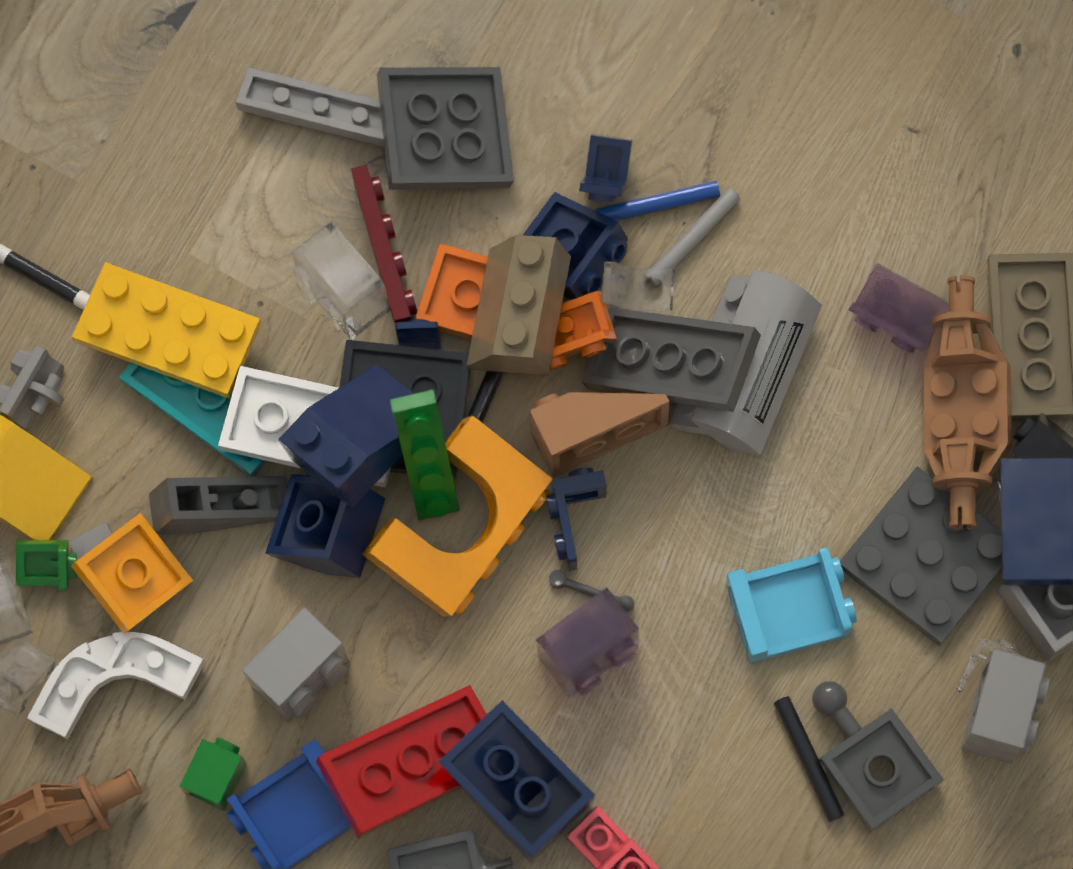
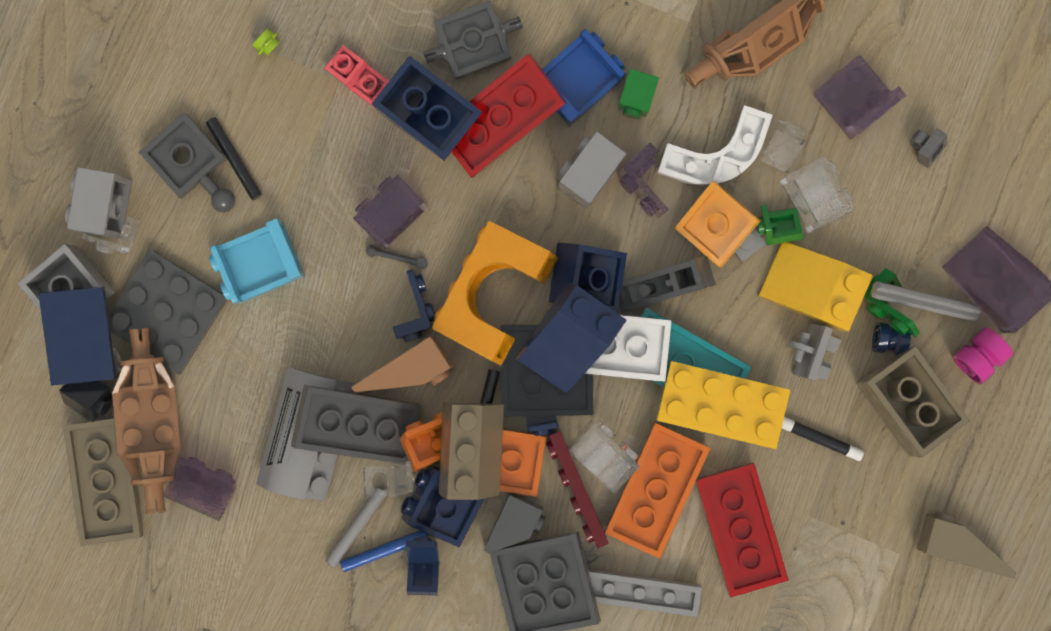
camera: 165 degrees right, 15 degrees up
(170, 171) = (741, 529): none -> red plate
(224, 664) = (632, 181): none -> bracket
(255, 256) = (657, 490): none -> orange plate
(425, 454) = (520, 326): green plate -> none
(475, 212) = (515, 523): none -> dark grey slope

